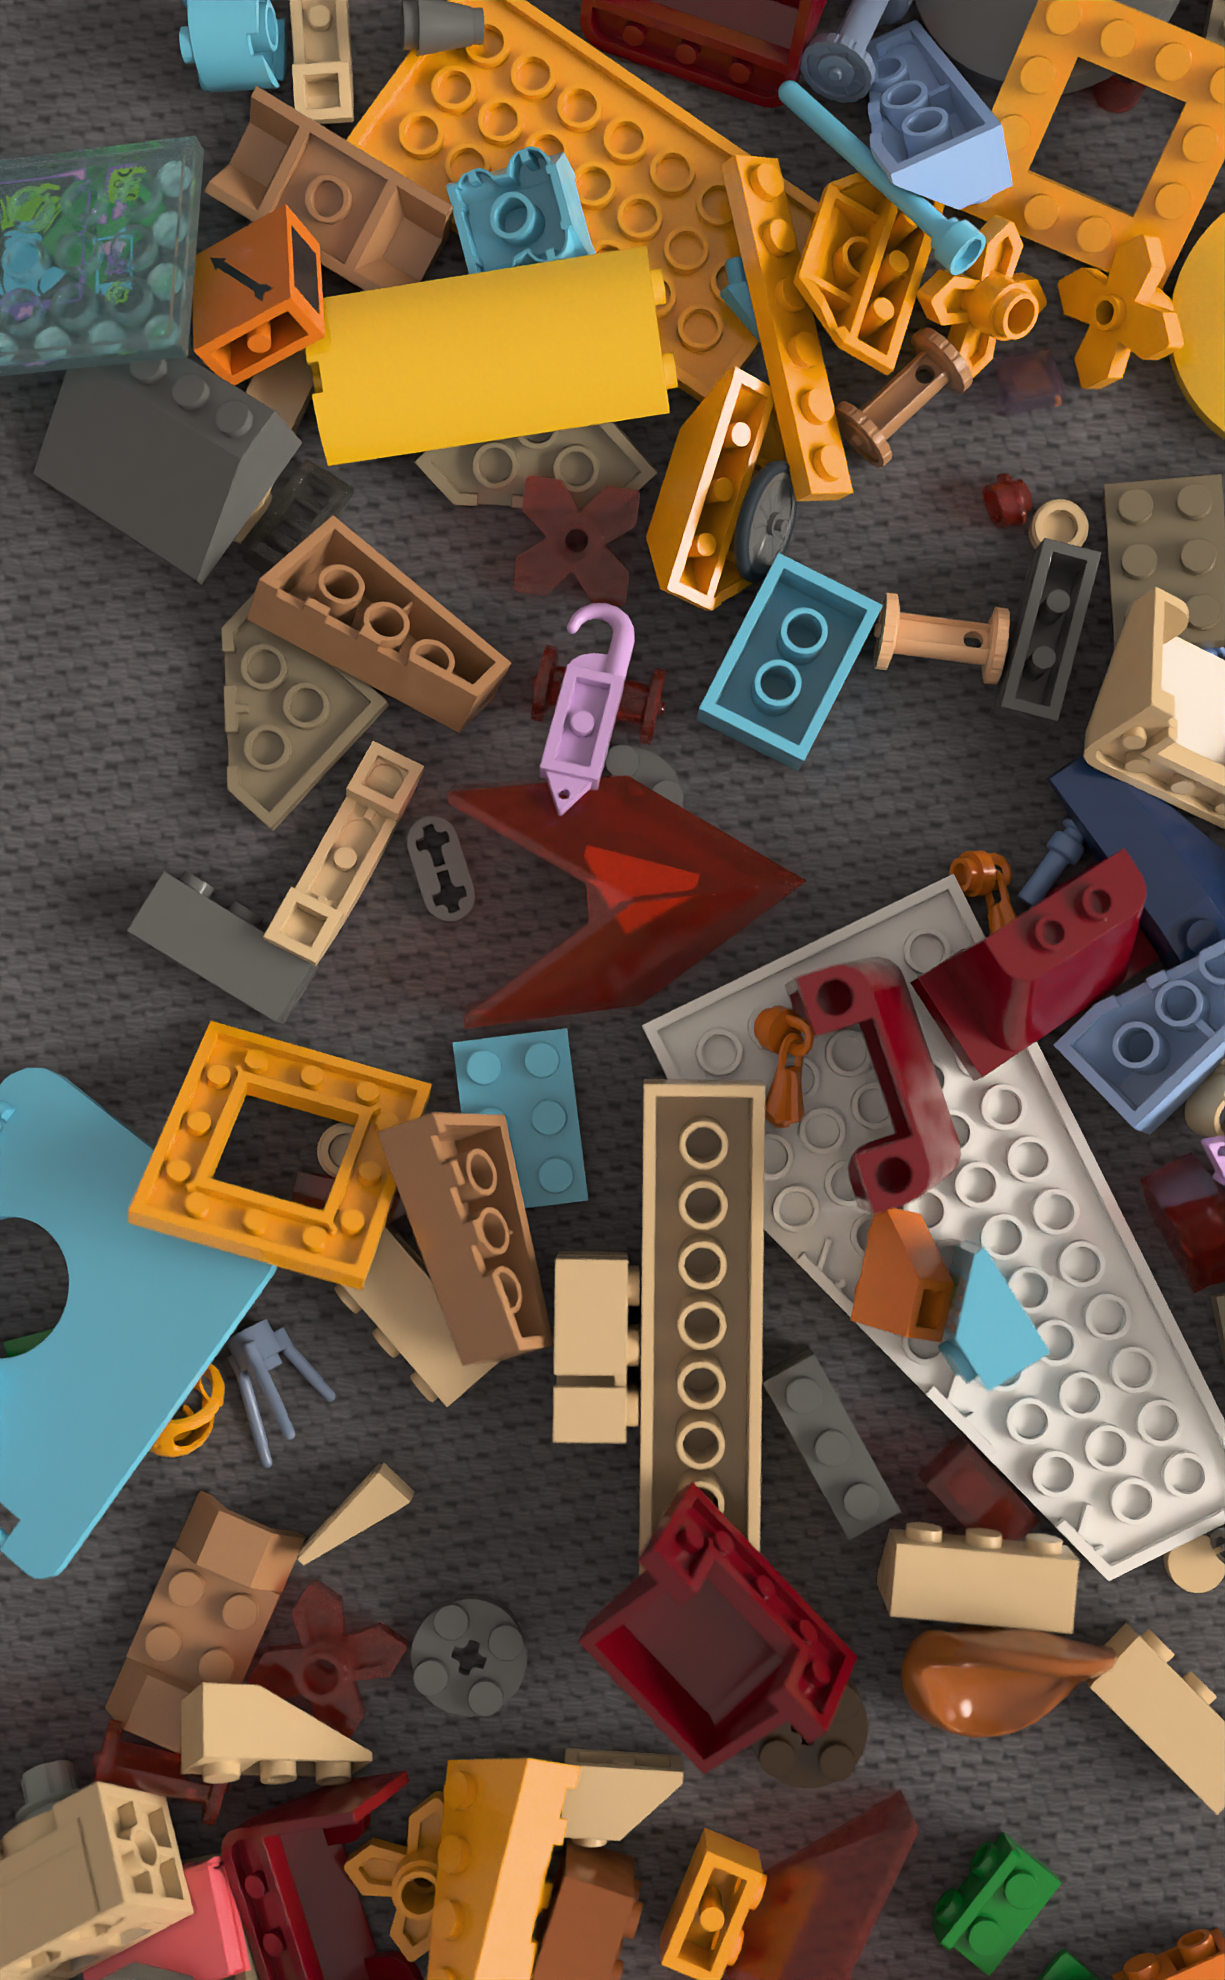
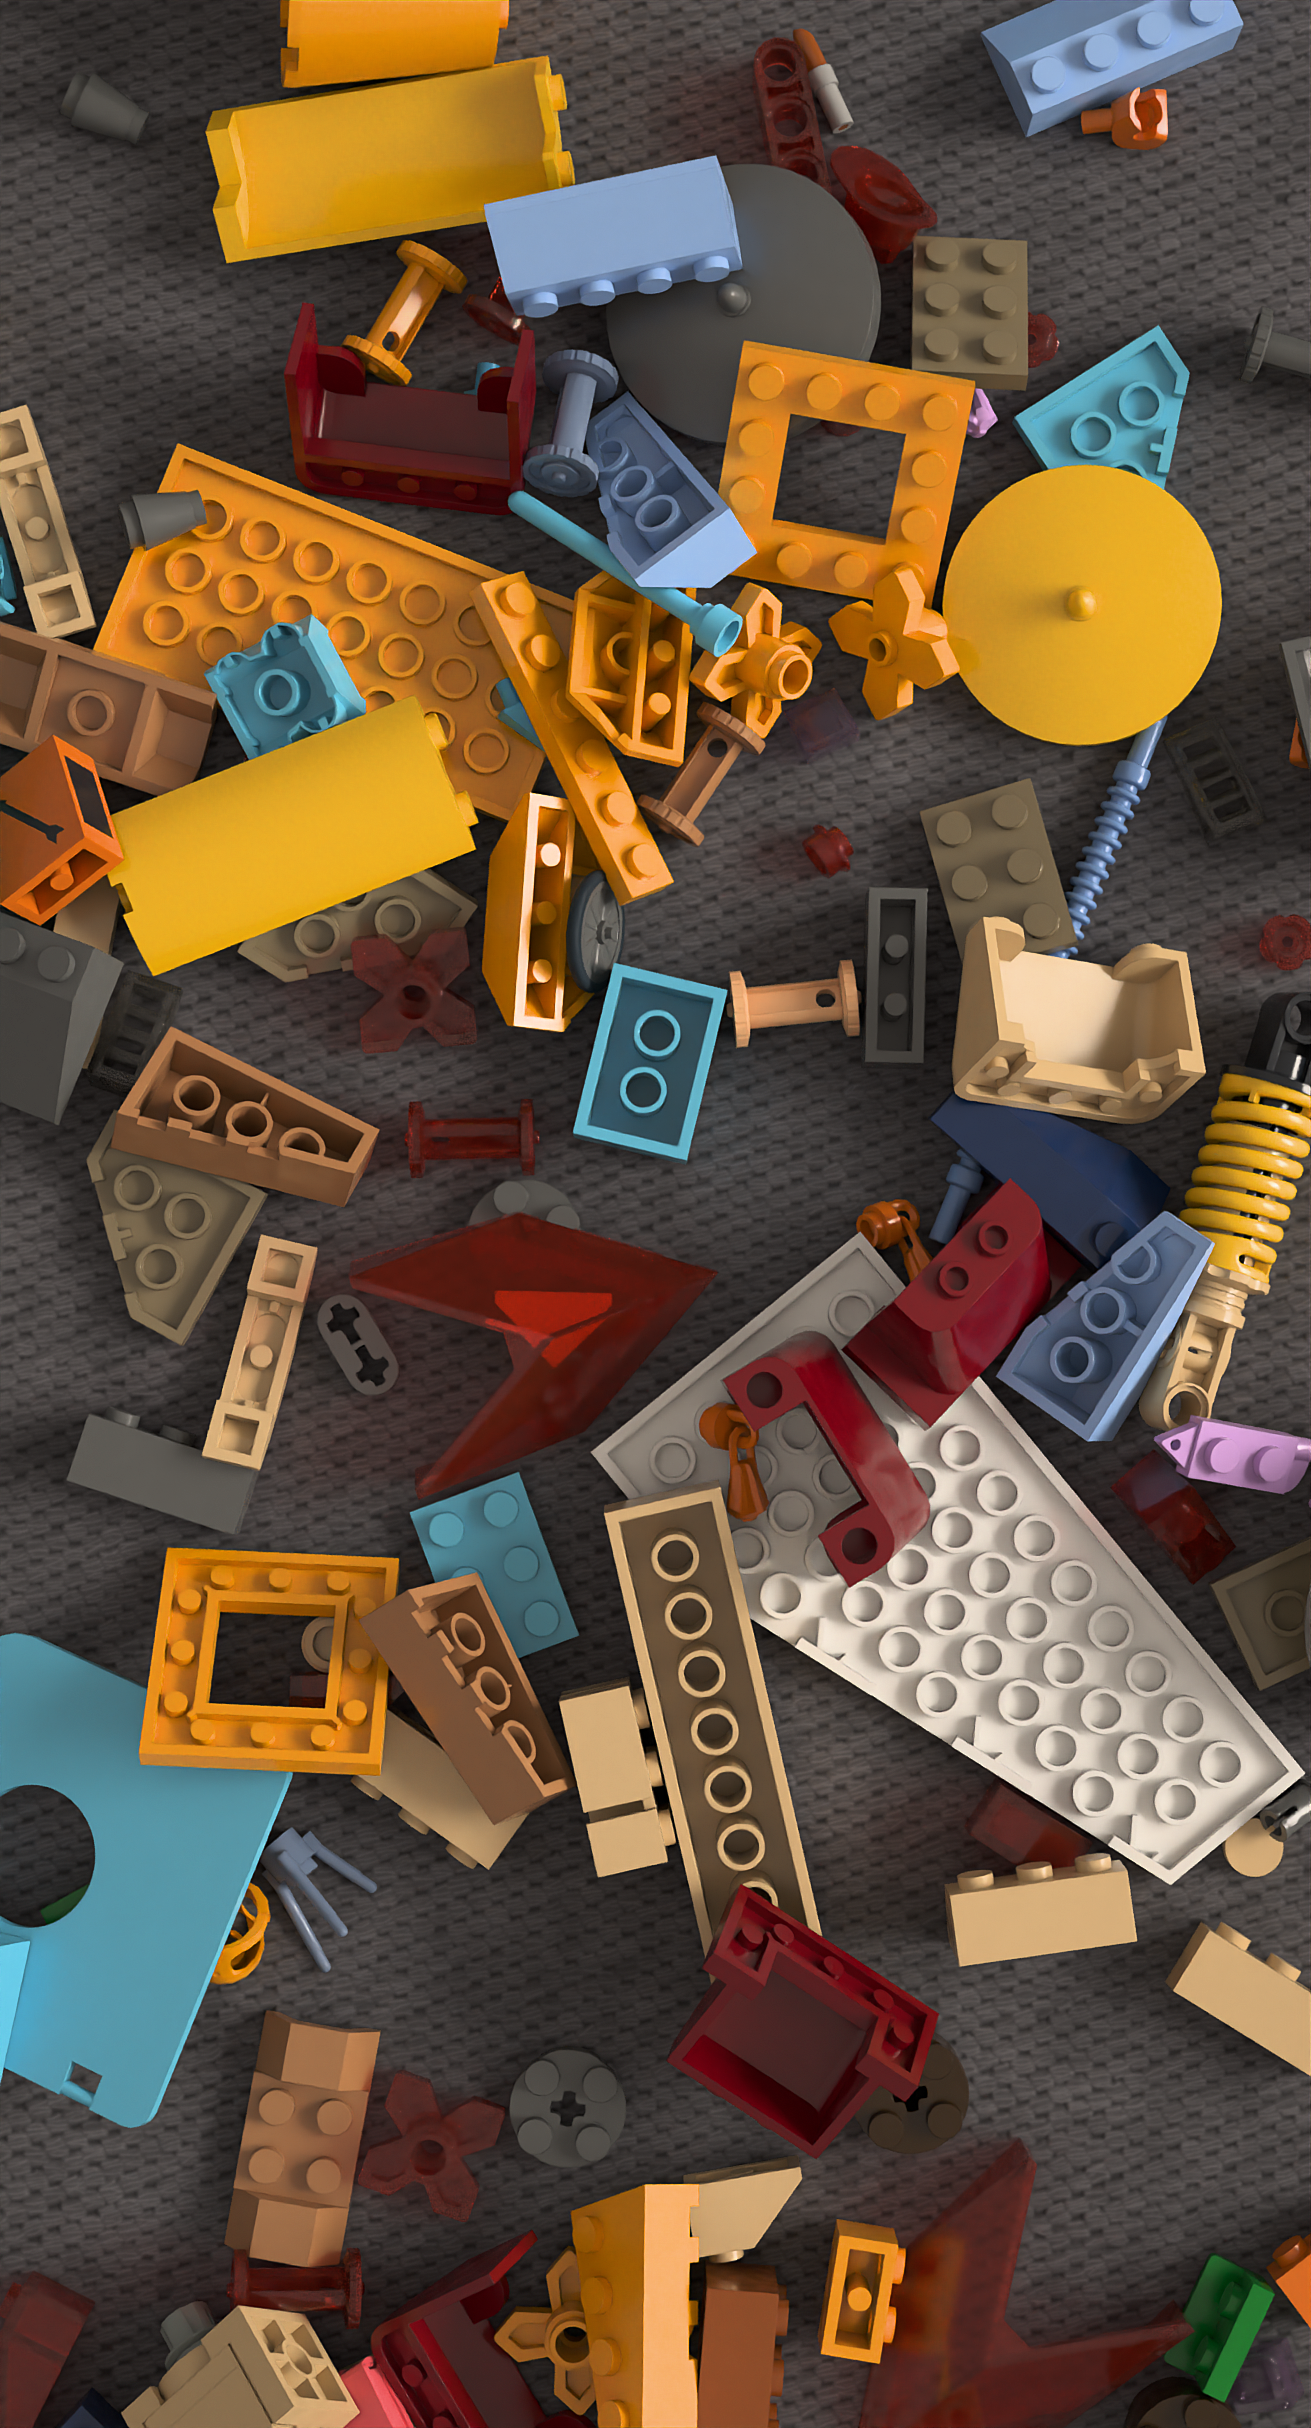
camera: 15 degrees left, 0 degrees up
(255, 1732) = (380, 2228): tan slope -> none
(369, 1503) = (436, 1979): tan slope -> none
(587, 709) = (464, 1159): lavender plate -> none
(829, 1443) = (867, 1815): dark grey brick -> none
(903, 1279) = (899, 1639): orange slope -> none
(985, 1324) = (986, 1664): medium azure slope -> none
(993, 1902) = (1134, 2223): green bracket -> none
(995, 1677) = (1078, 2003): dark orange piece -> none
(1059, 521) = (885, 863): tan tile -> none

